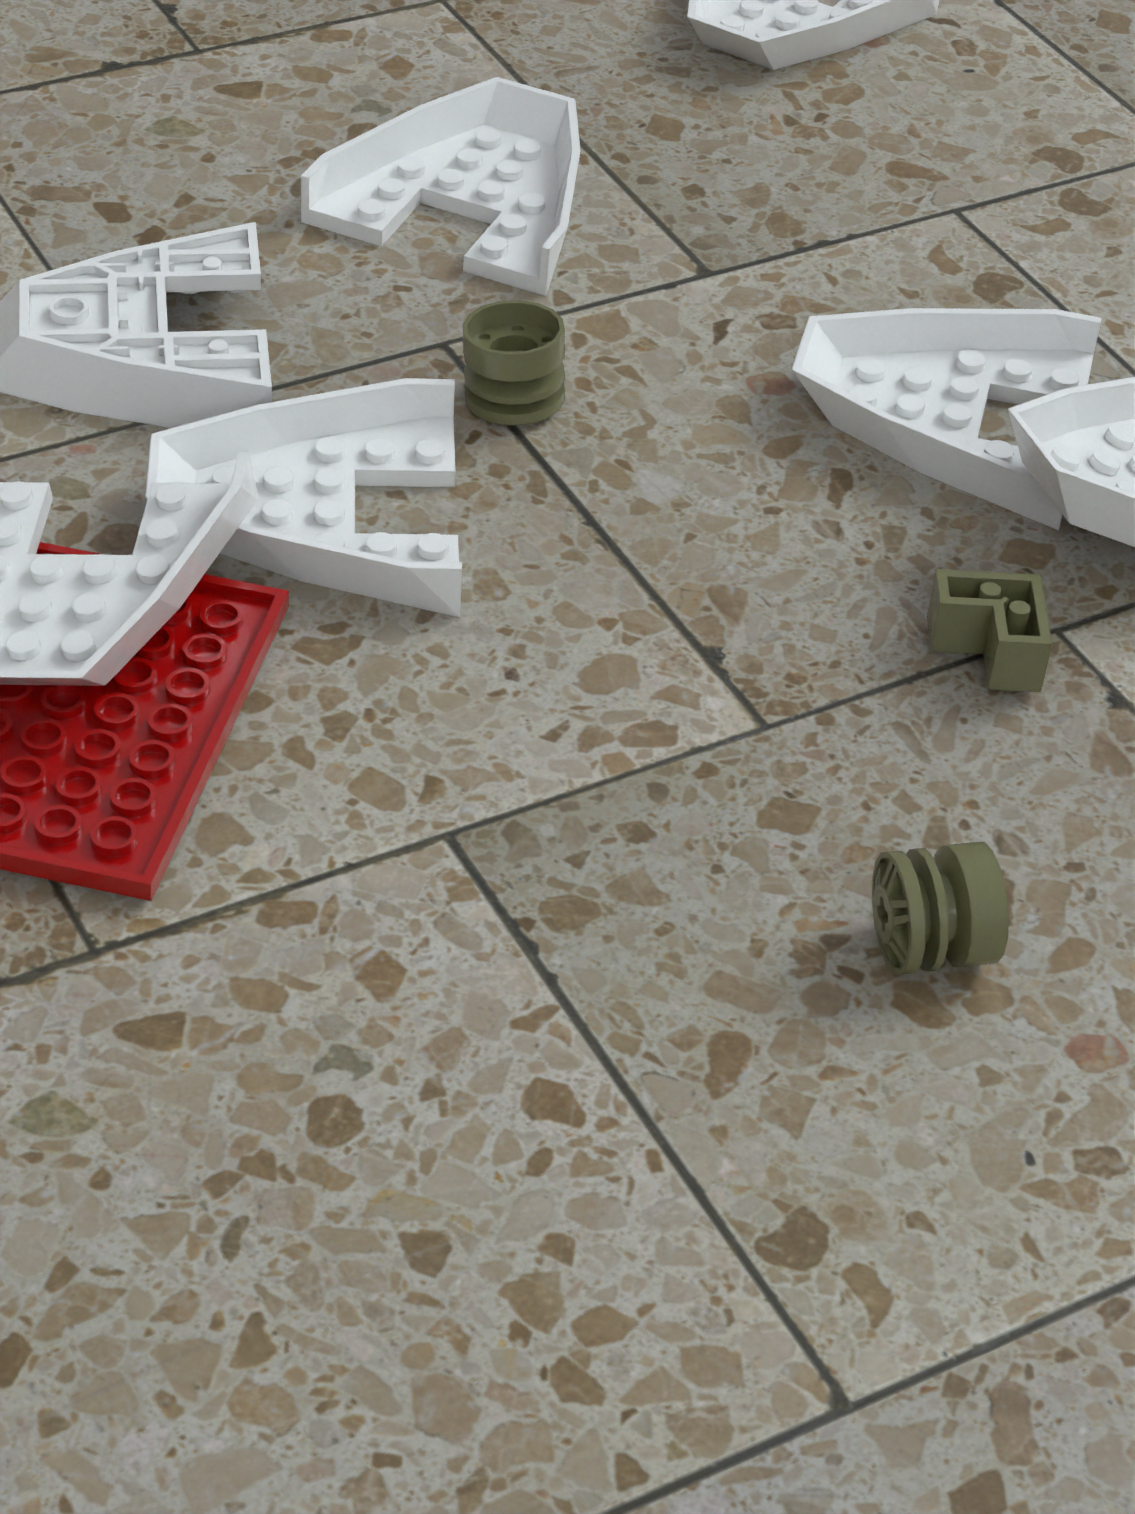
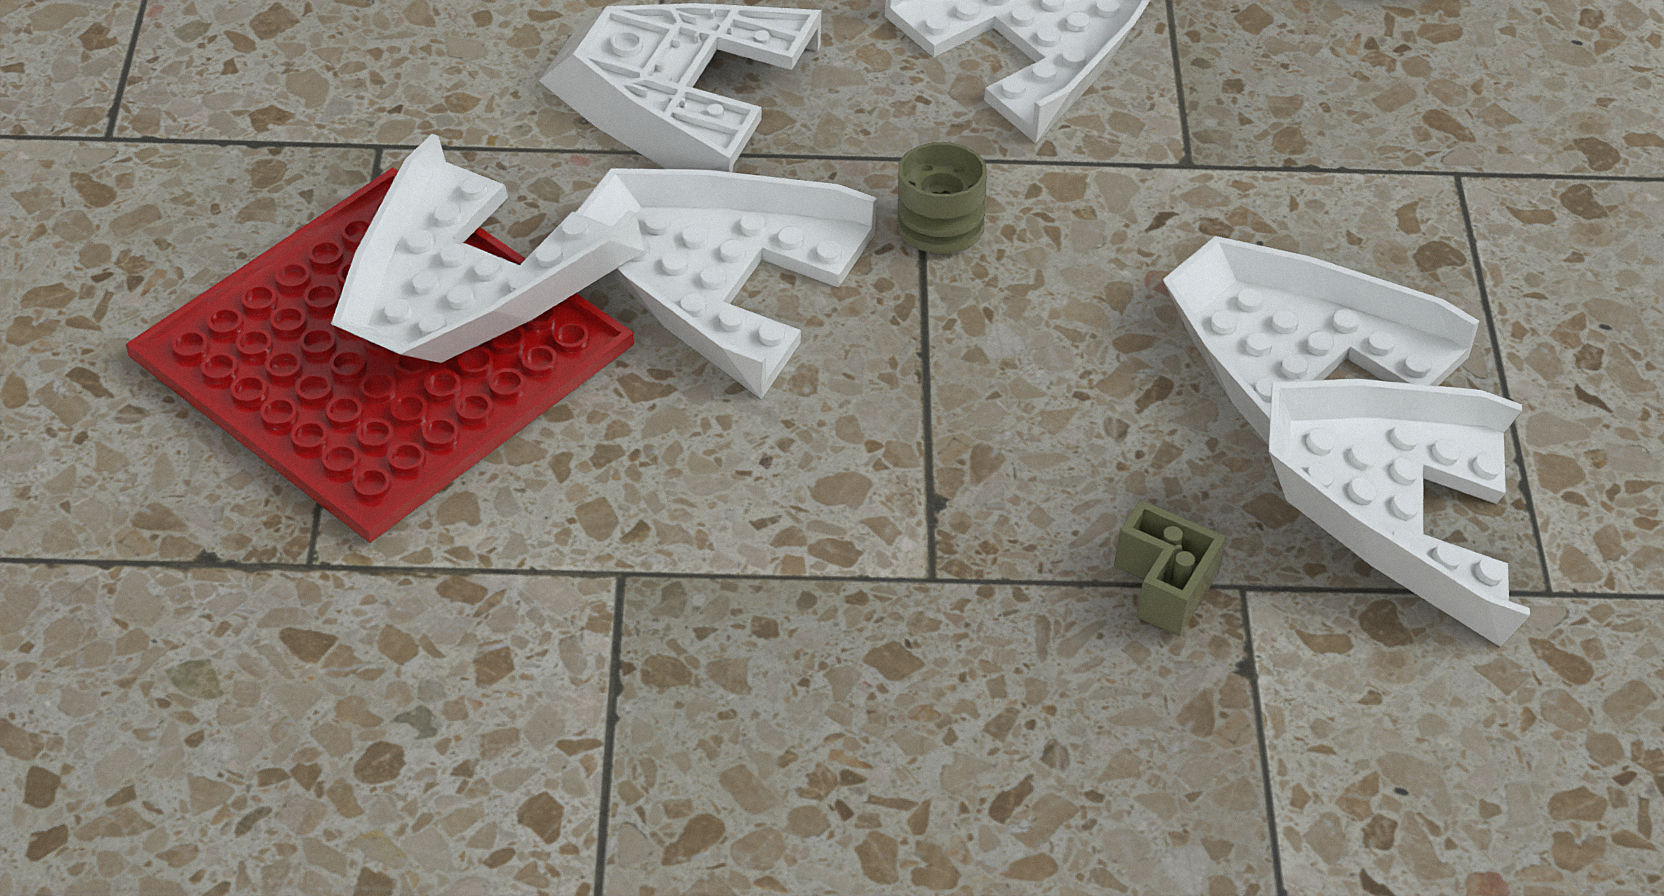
camera: 30 degrees right, 5 degrees up
(940, 907) = (923, 785): olive wheel -> none

